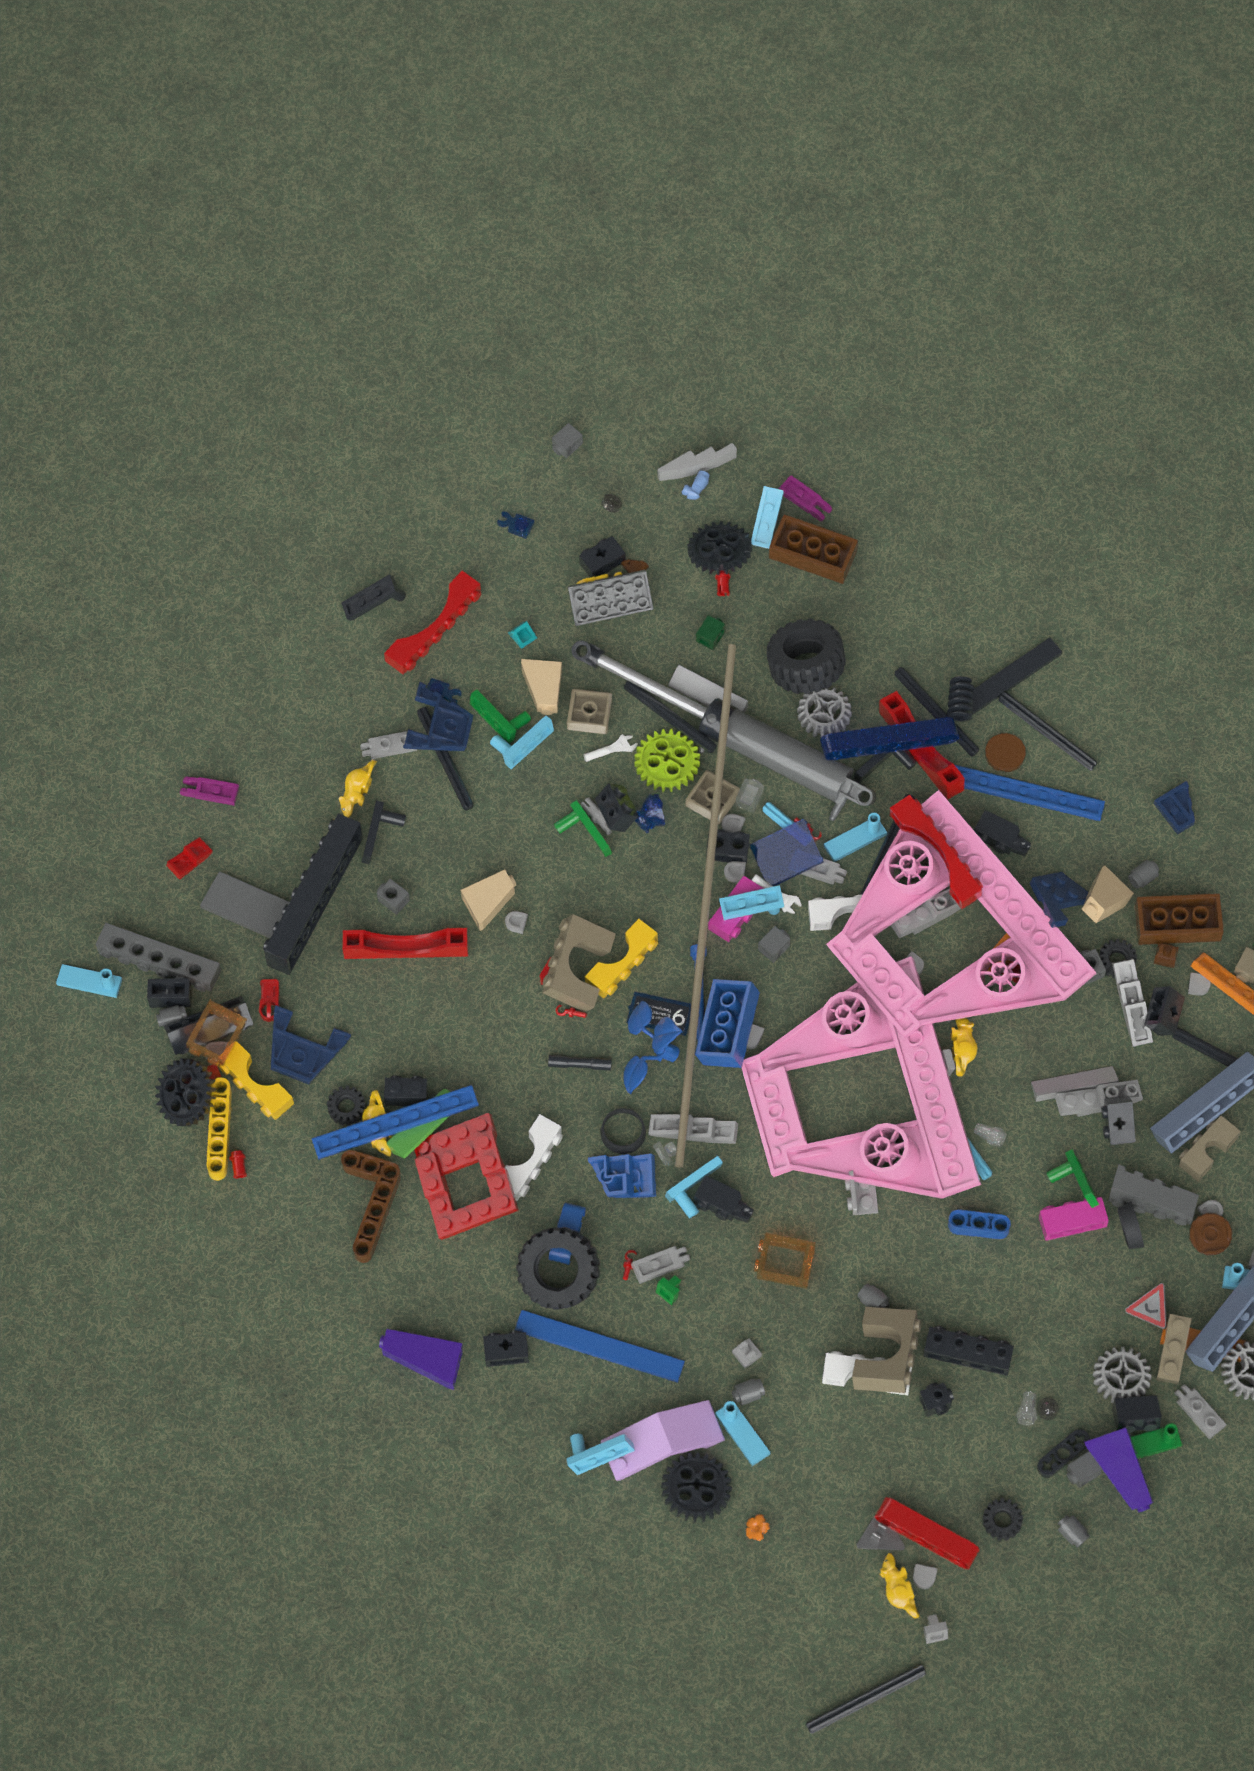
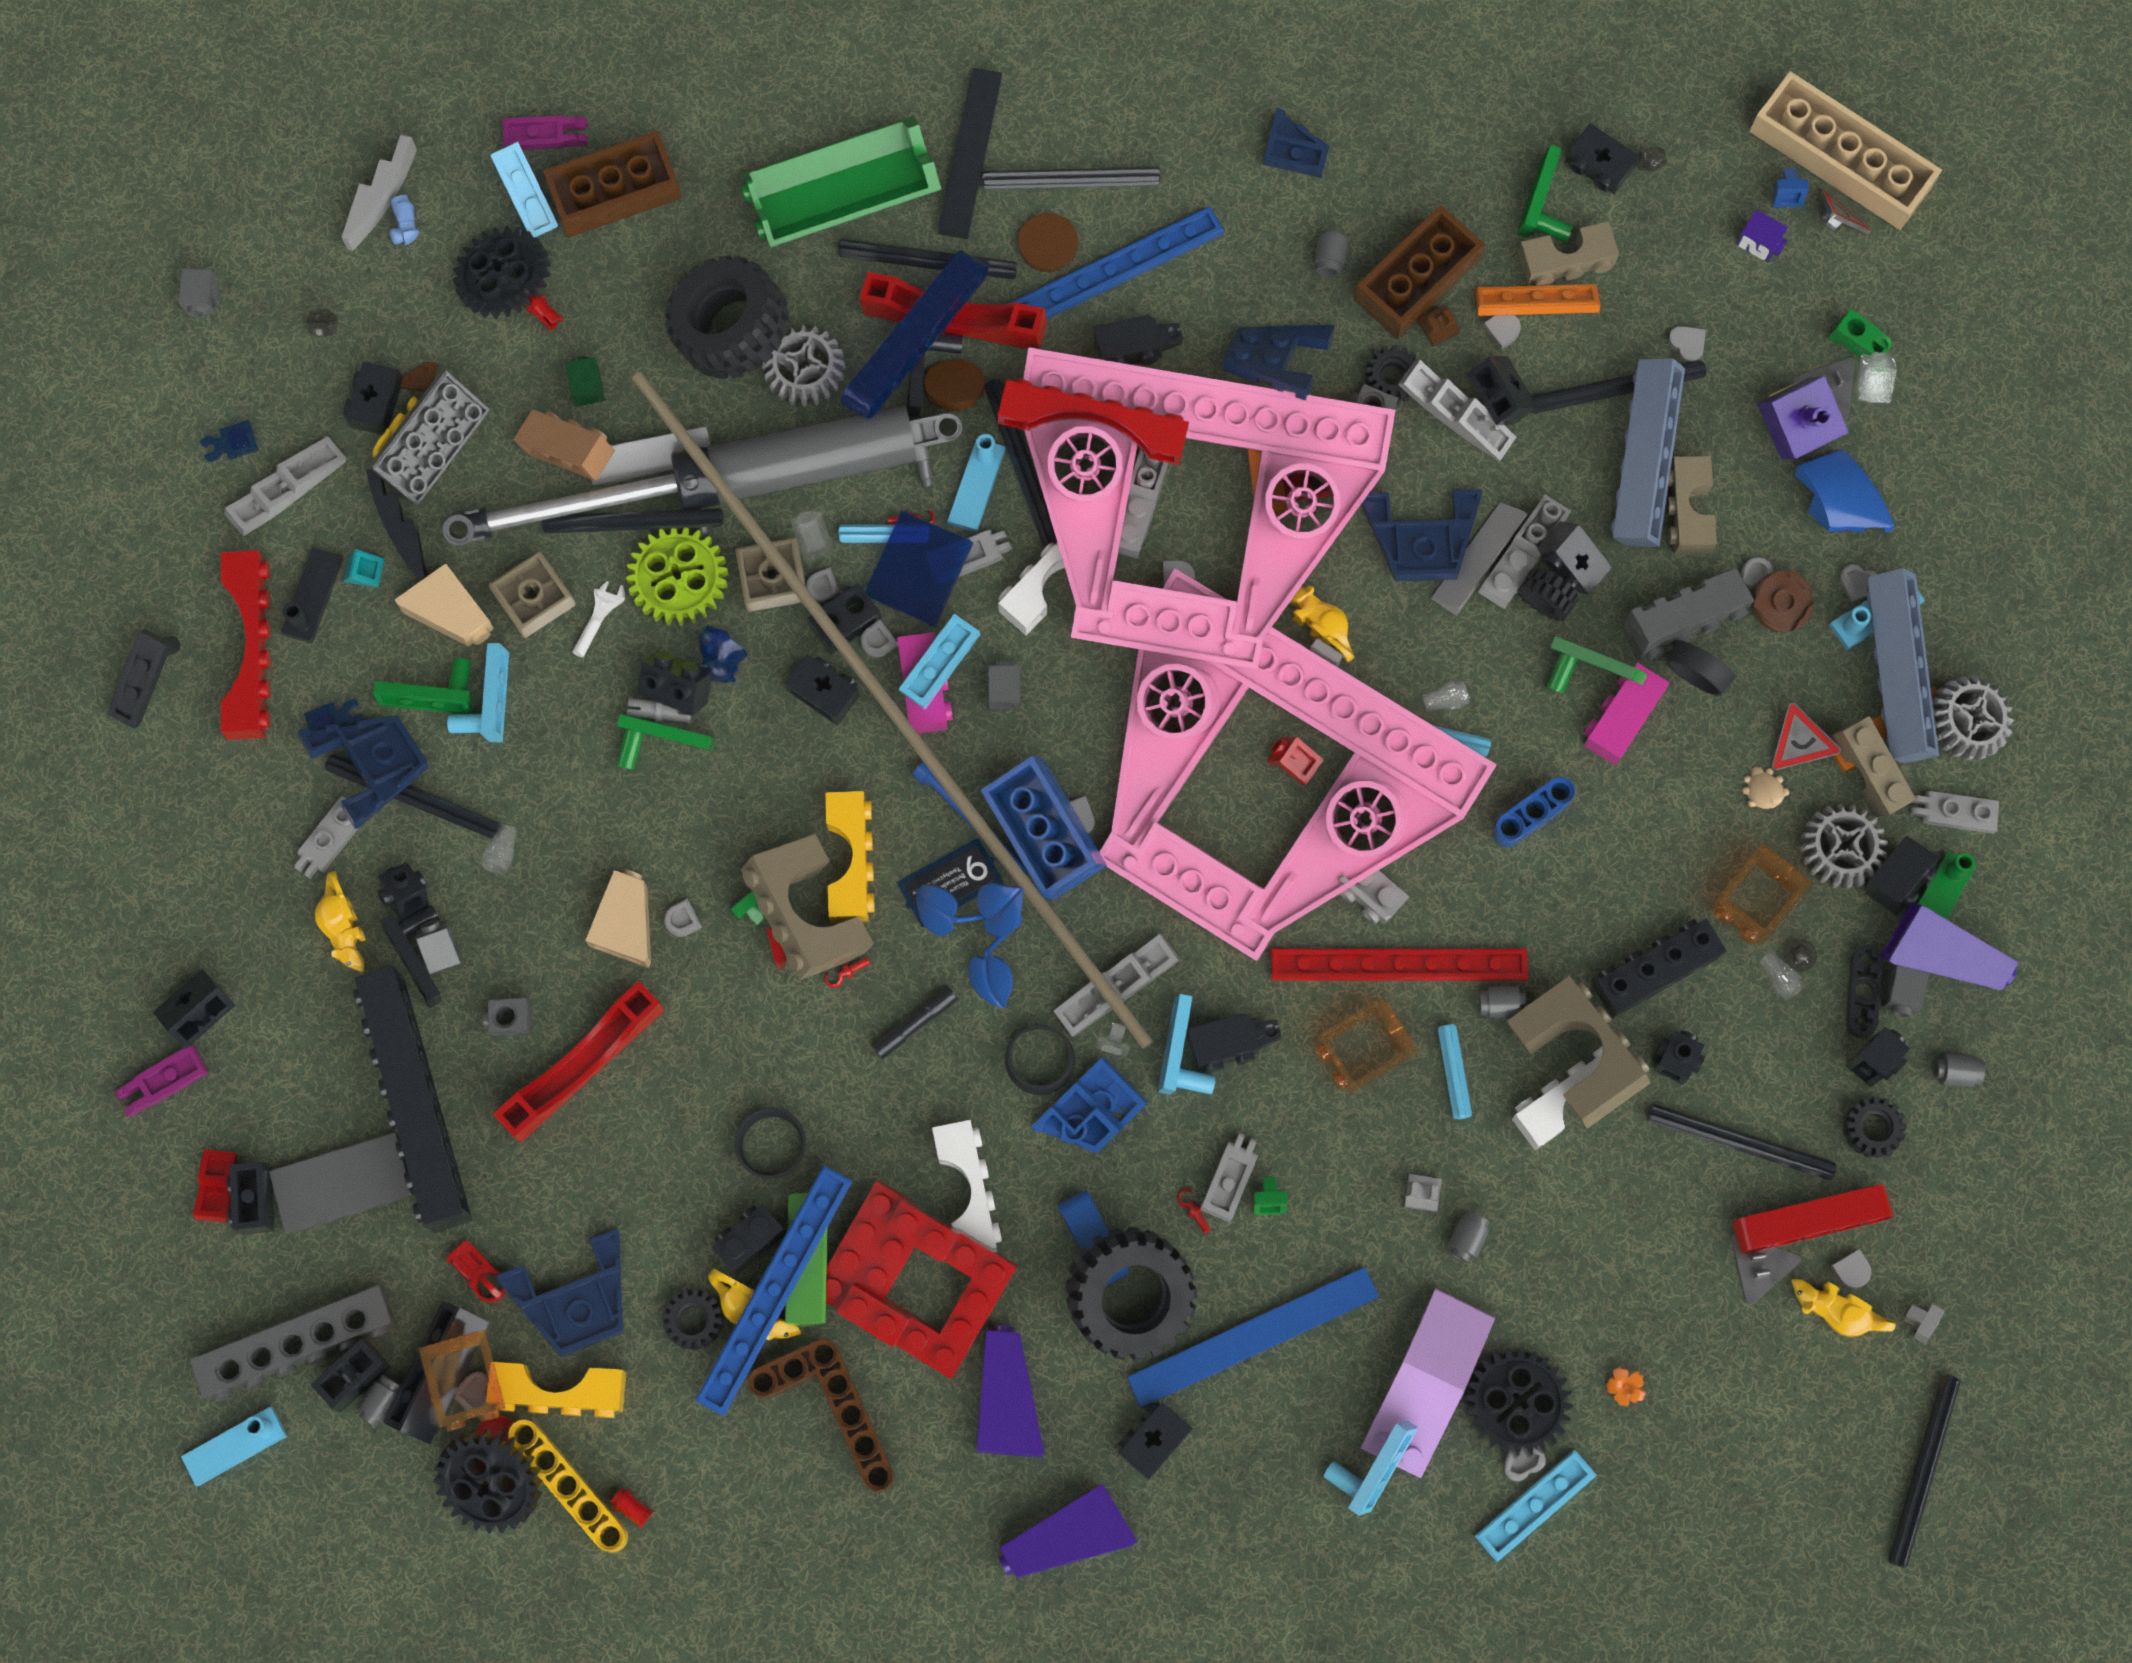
camera: 45 degrees left, 10 degrees up
(199, 876) = (251, 1198): none -> black brick
(254, 769) = (194, 1009): none -> black brick
(391, 835) = (437, 945): none -> brick
(399, 796) = (403, 890): none -> black brick
(453, 1040) = (753, 1118): none -> black tyre
(453, 1271) = (1007, 1405): none -> dark purple slope
(459, 818) = (500, 850): none -> clear cone
(491, 624) = (312, 595): none -> black piece
(522, 565) = (285, 486): none -> light grey slope
(549, 940) = (748, 907): none -> green tile
(555, 631) = (402, 533): none -> black slope
(658, 1542) = (1535, 1505): none -> medium azure tile
(669, 1518) = (1519, 1468): none -> light grey tile
(671, 652) = (564, 444): none -> medium nougat brick
(685, 882) = (830, 704): none -> black brick
(742, 1433) = (1506, 1291): medium azure piece -> none
(787, 899) = (937, 626): white piece -> none
(818, 1311) = (1454, 1071): none -> medium azure axle
(841, 1239) = (1399, 964): none -> red tile
(885, 1098) = (1295, 758): none -> bracket
(889, 781) = (954, 384): none -> reddish brown tile
(927, 638) = (840, 181): none -> green panel
(929, 1468) = (1741, 1142): none -> black axle
(960, 698) = (944, 223): black piece -> none
(1035, 1485) = (1880, 1057): none -> black brick
(1052, 1055) = (1423, 547): none -> dark blue wing
(1077, 1376) = (1779, 871): none -> clear orange window
(1089, 1126) = (1548, 594): none -> black tyre
(1106, 896) = (1315, 313): tan slope -> none
(1110, 1315) = (1764, 789): none -> tan piece

